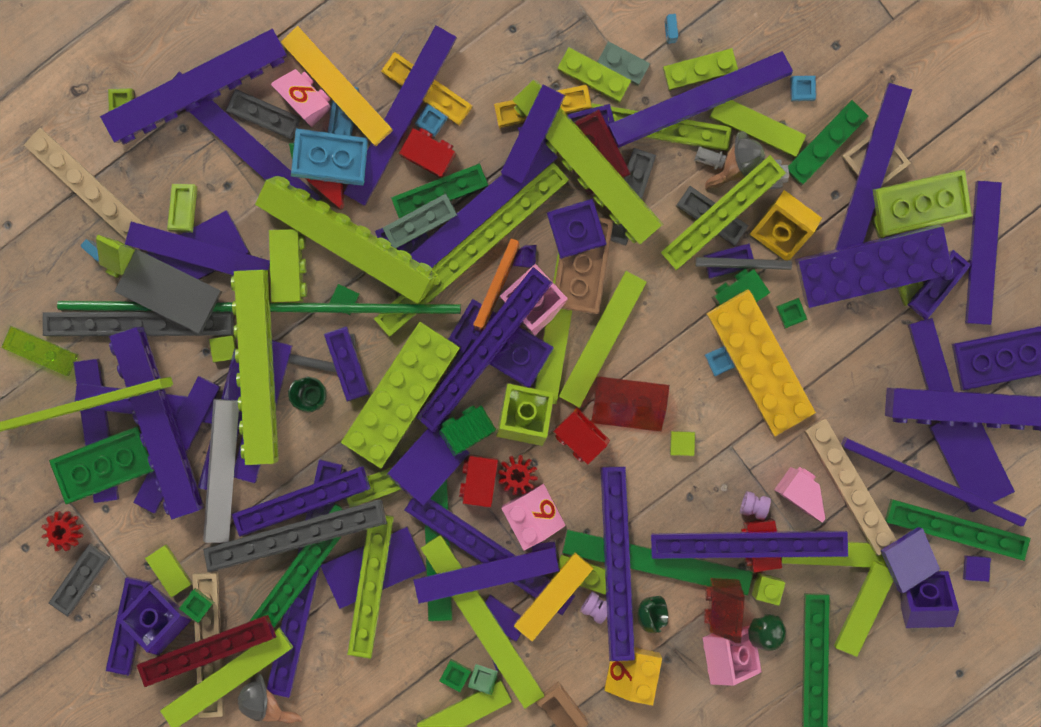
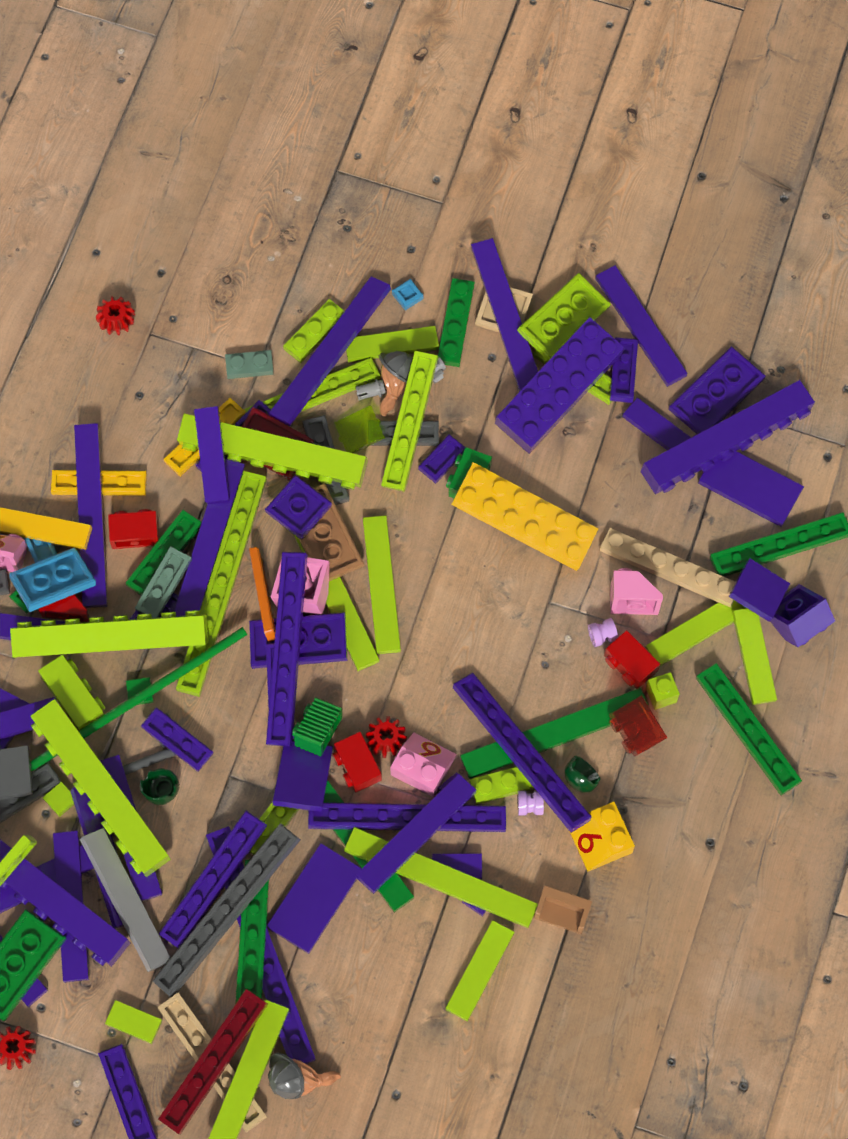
camera: 40 degrees left, 20 degrees down
(79, 580) = (56, 1085): dark grey tile -> none
(154, 620) = (148, 1068): dark purple slope -> none
(196, 605) = (179, 1027): green plate -> none
(370, 590) = (323, 914): lime tile -> none
(400, 395) = (241, 735): lime brick -> none
(431, 120) = (118, 502): dark azure tile -> none
(455, 675) = (449, 942): green plate -> none
(483, 679) = (476, 929): green tile -> none
(525, 256) = (271, 559): dark purple tile -> none
(525, 415) = (358, 683): lime slope -> none
(553, 596) = (486, 815): yellow tile -> none
(581, 436) = (417, 669): red brick -> none
(594, 74) = (231, 386): lime plate -> none
(629, 403) = (439, 618): clear red slope -> none
(671, 28) = (269, 314): dark azure tile -> none
(676, 189) = (359, 430): none -> clear neon green piece
(682, 443) = (507, 624): lime tile -> none
(719, 361) = (491, 539): dark azure tile -> none
(731, 661) = (672, 766): bright pink slope -> none
(743, 263) = (455, 450): dark grey bar -> none
(750, 544) = (617, 660): dark purple plate -> none
(767, 632) = (688, 728): dark green hair -> none
(786, 226) = (468, 402): yellow slope -> none
(791, 313) = (522, 466): green tile -> none
(933, 482) = (731, 518): dark purple tile -> none
(976, 568) = (820, 566): dark purple tile -> none

